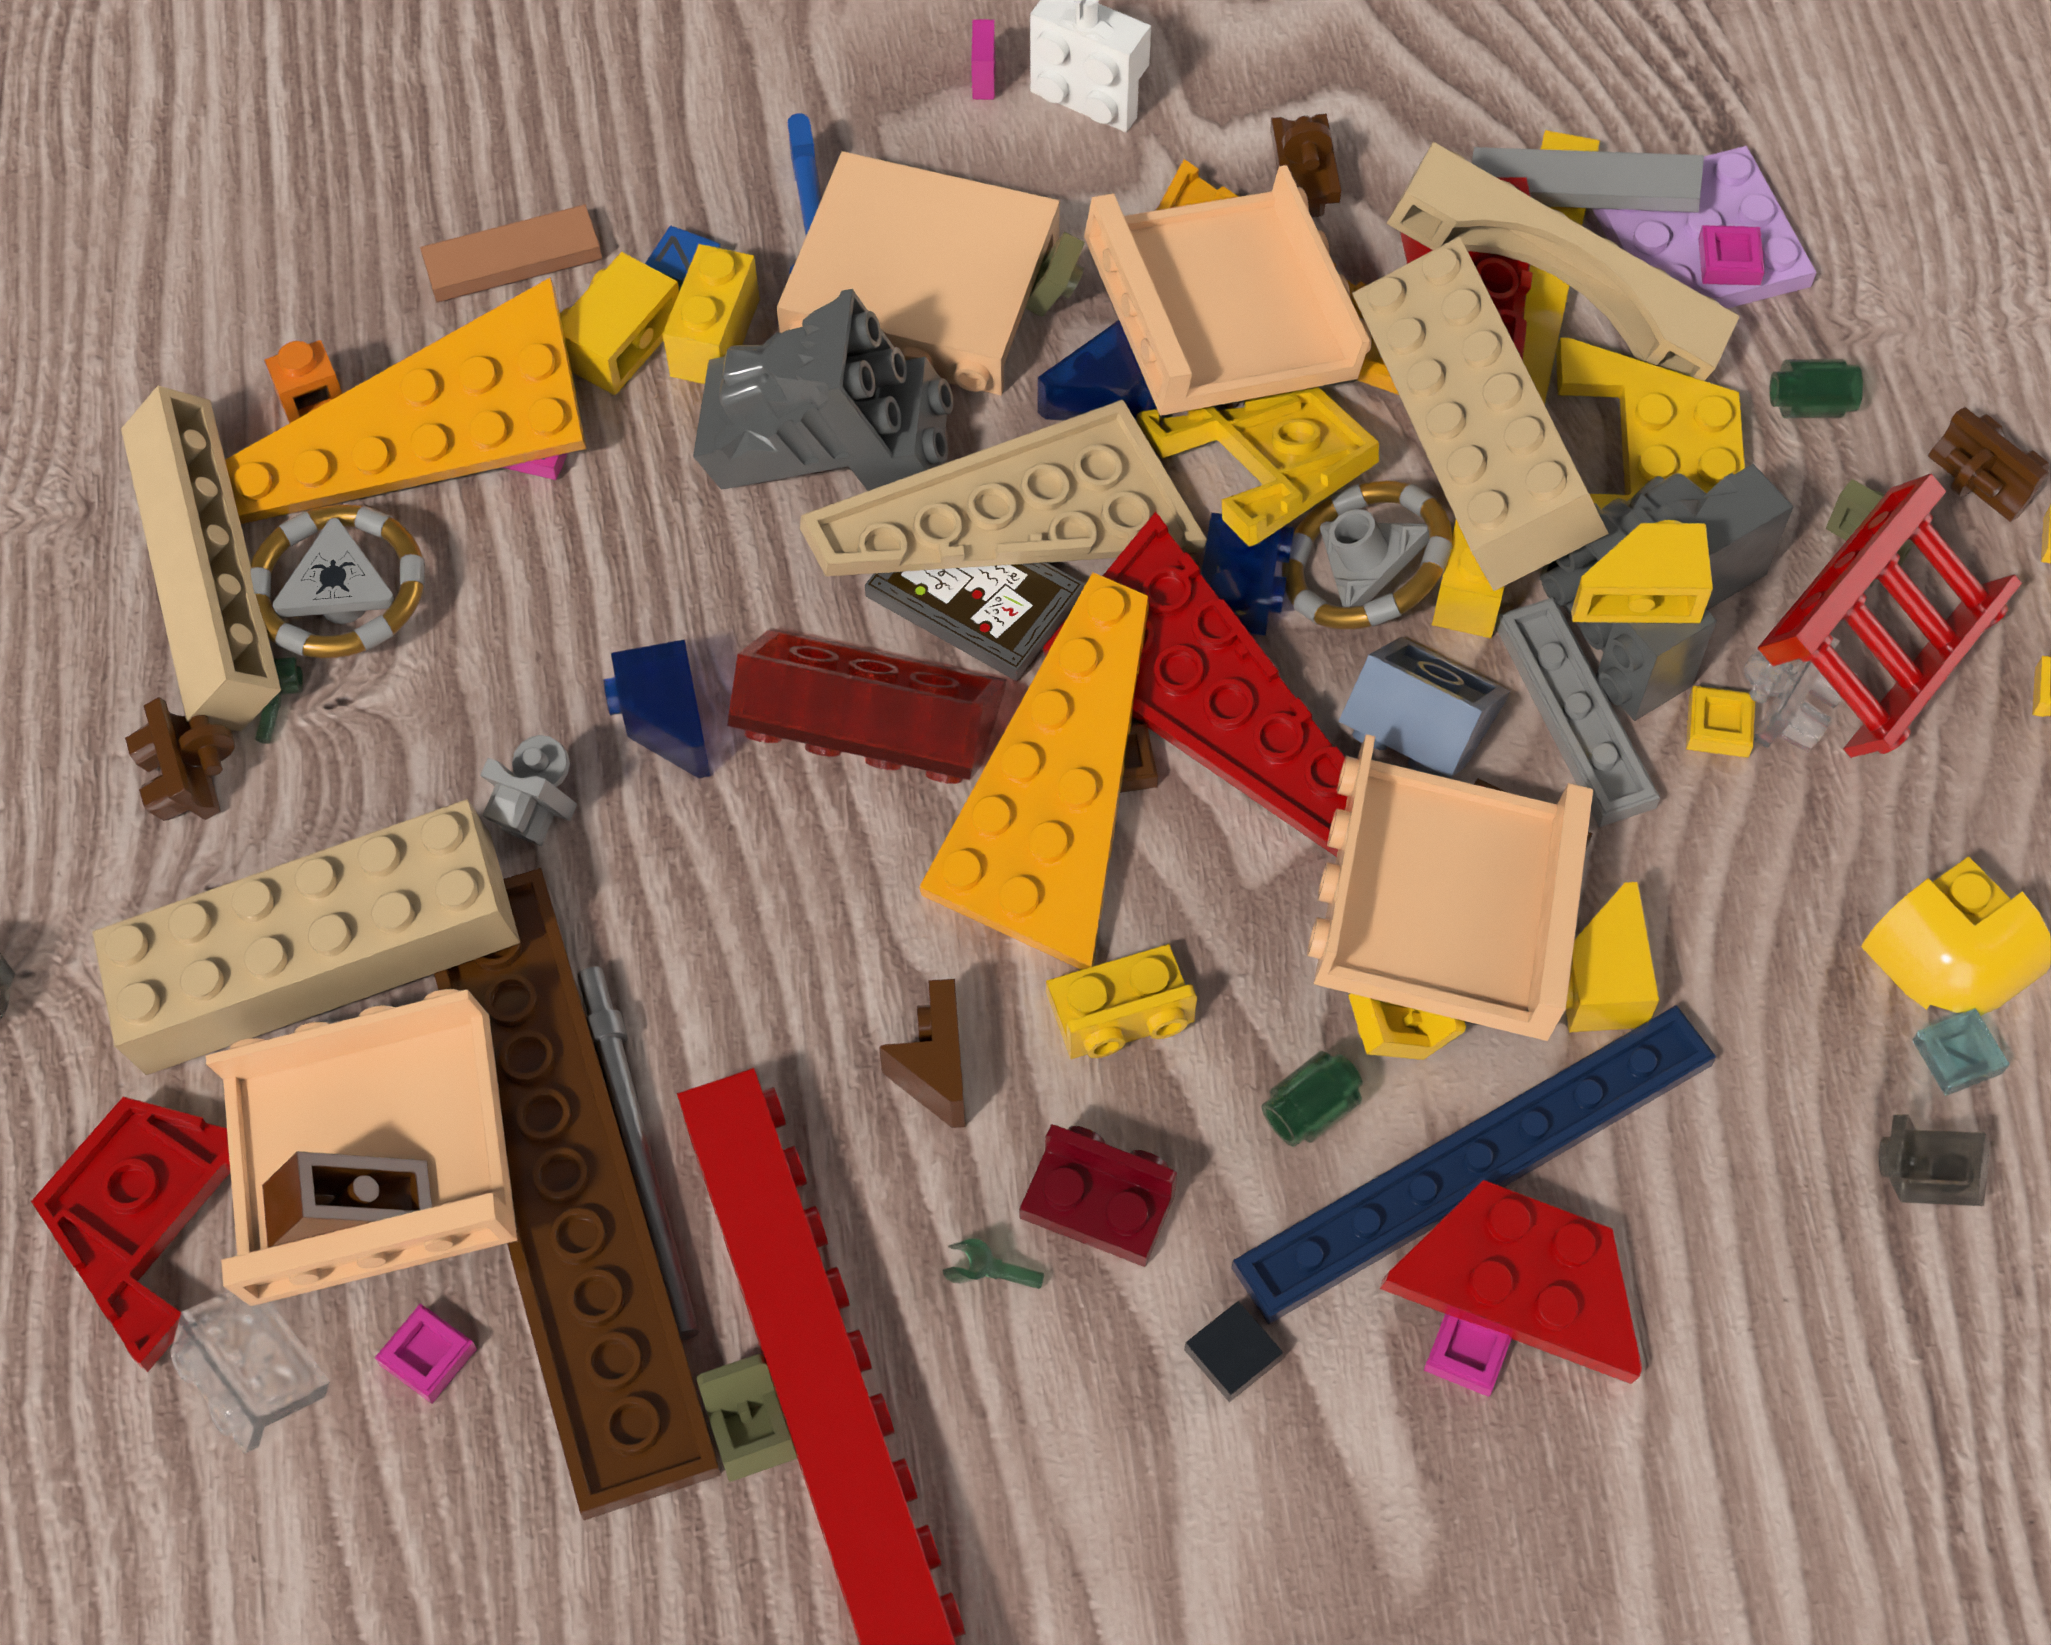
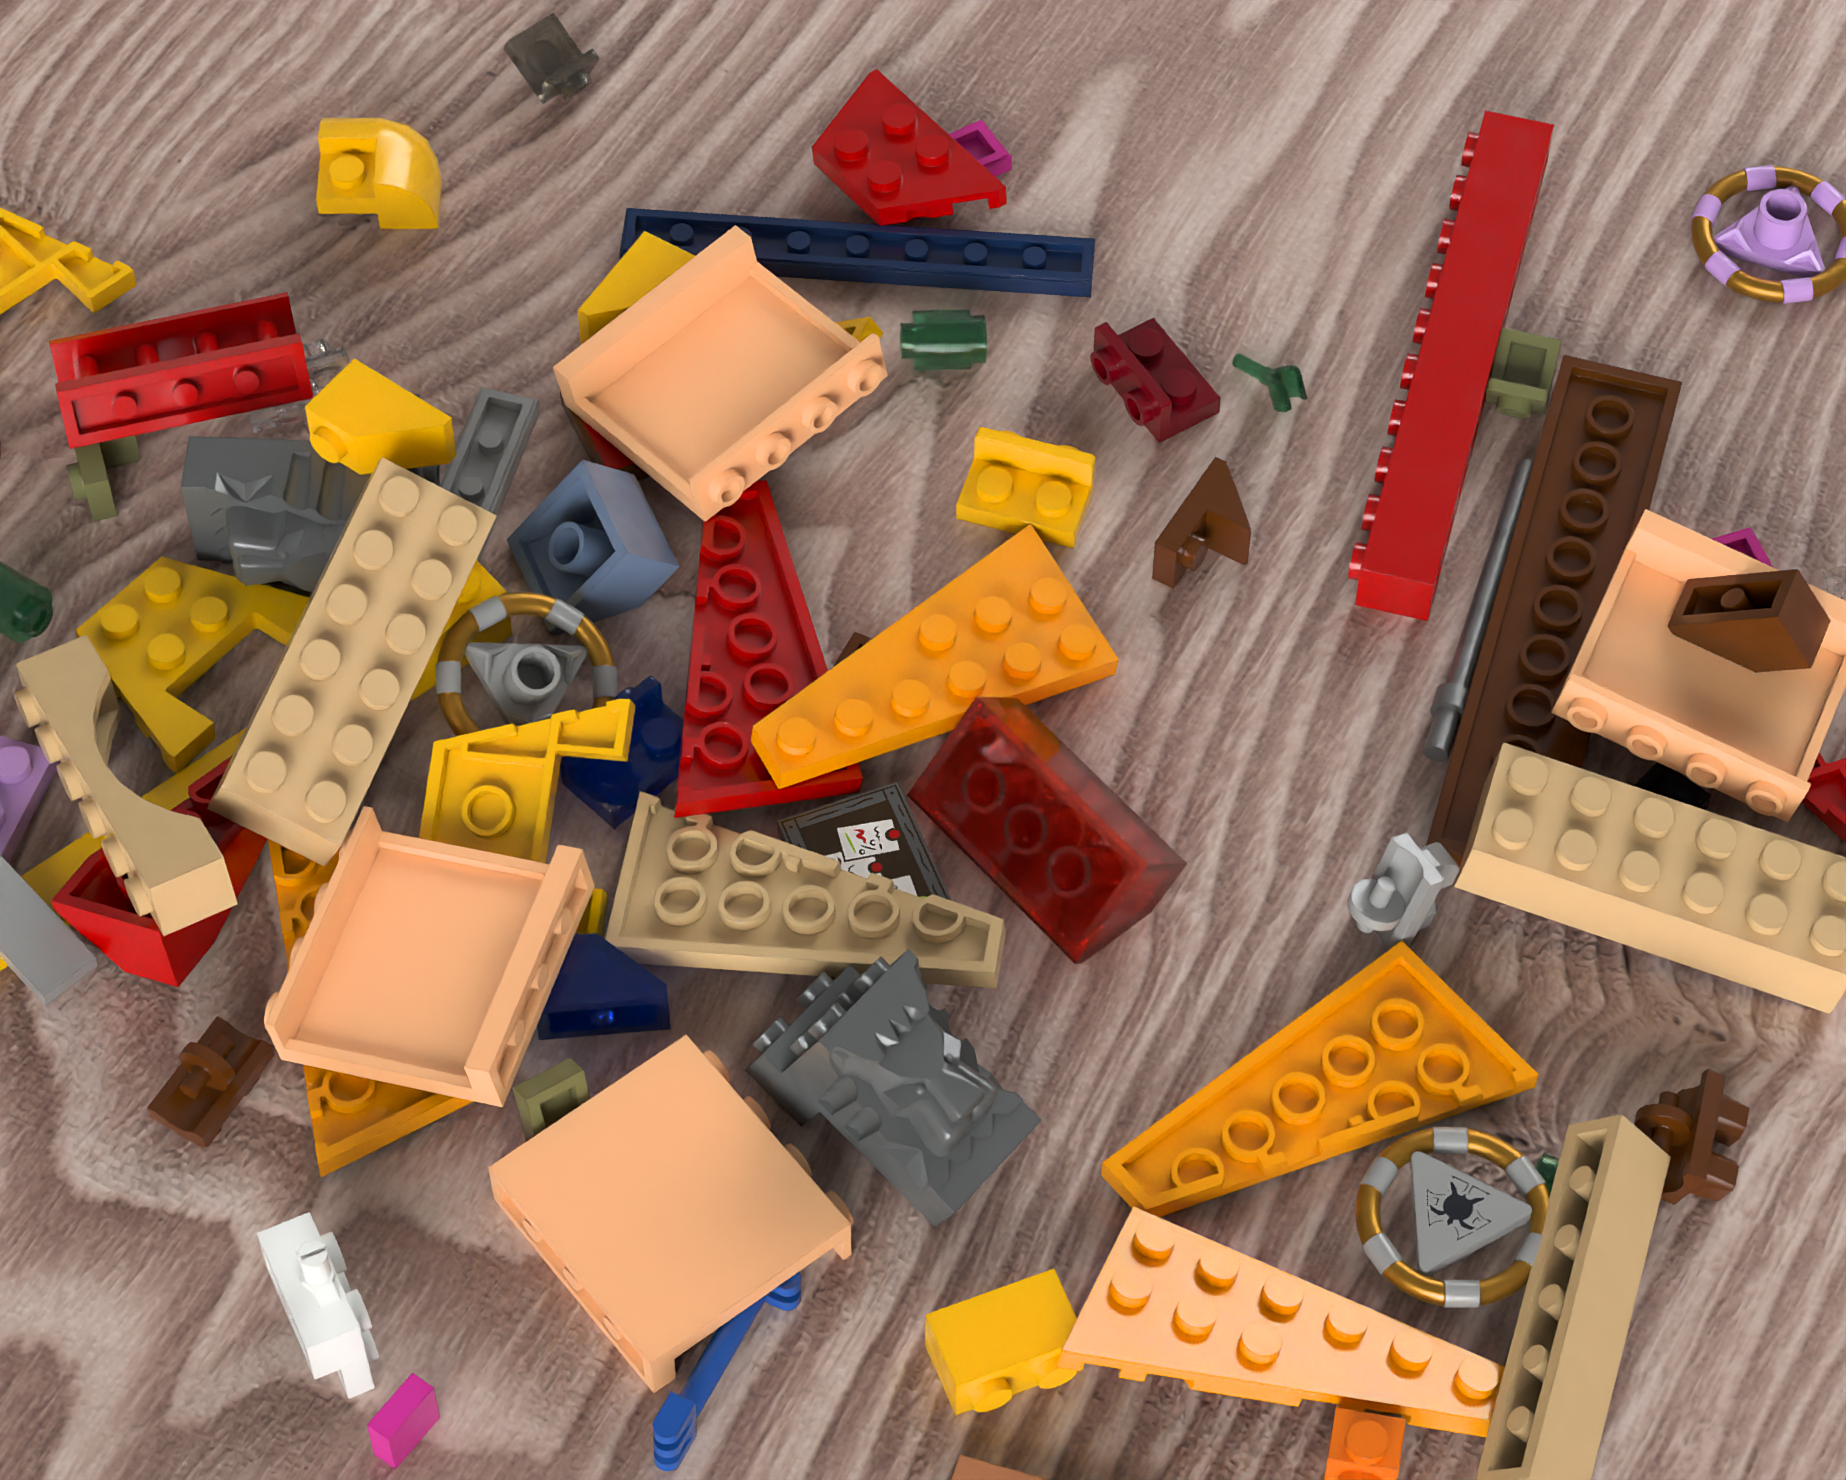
camera: 145 degrees left, 5 degrees down
(503, 639) = (1345, 1074): none -> light orange wing
(659, 703) = (1226, 931): clear blue slope -> none
(676, 253) = (884, 1394): blue tile -> none
(710, 311) = (908, 1276): yellow brick -> none
(1233, 1351) = (1136, 239): black tile -> none
(1960, 1052) = (451, 122): clear light blue tile -> none

